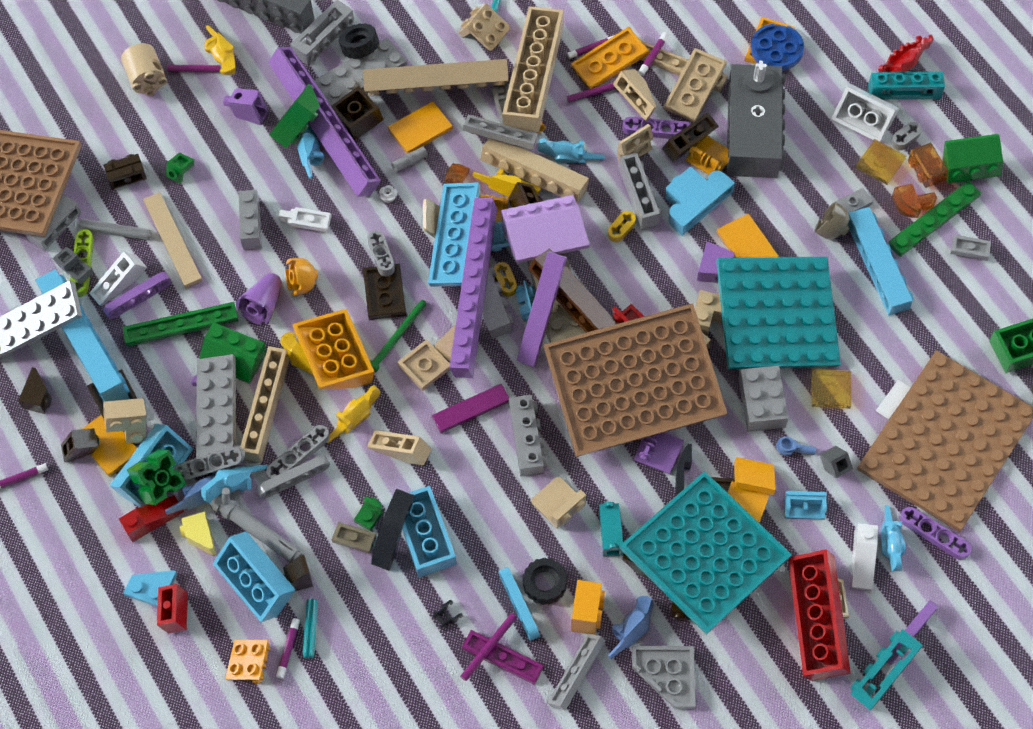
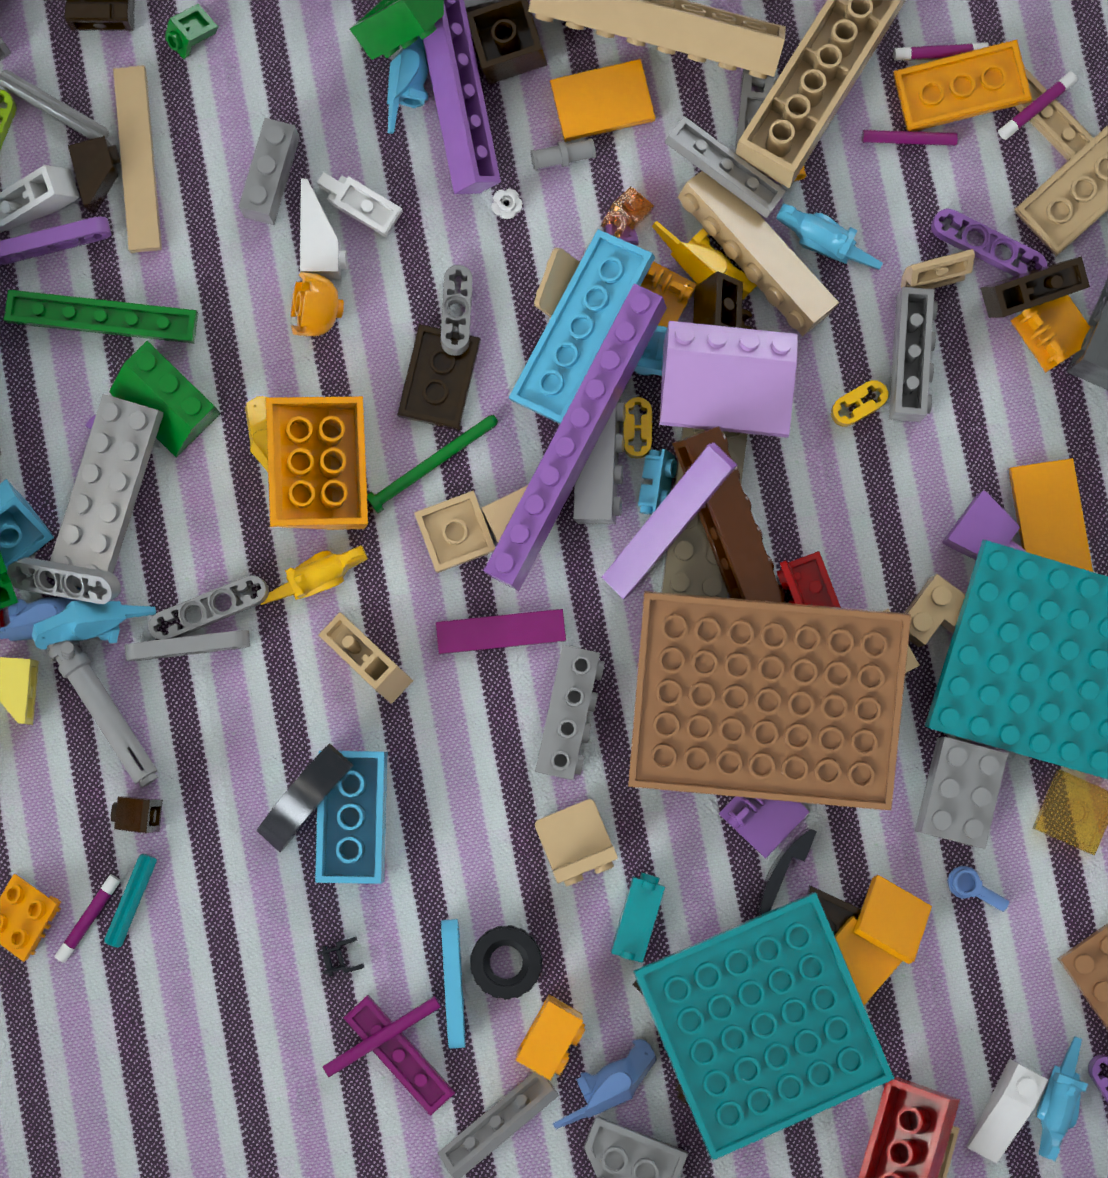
camera: 20 degrees right, 20 degrees up
(150, 250) = (94, 169): none -> dark brown slope
(253, 576) = (68, 795): medium azure brick -> none
(260, 299) = (240, 321): medium lavender cone -> none
(265, 404) = (182, 510): tan brick -> none
(290, 242) = (318, 243): none -> white slope
(353, 537) = (244, 781): dark tan plate -> none
(369, 513) = (281, 749): green bracket -> none
(636, 92) = (980, 170): tan slope -> none
(695, 197) = (998, 397): medium azure brick -> none
(805, 505) = (951, 993): medium azure hinge -> none
(836, 461) = (1029, 944): dark grey brick -> none

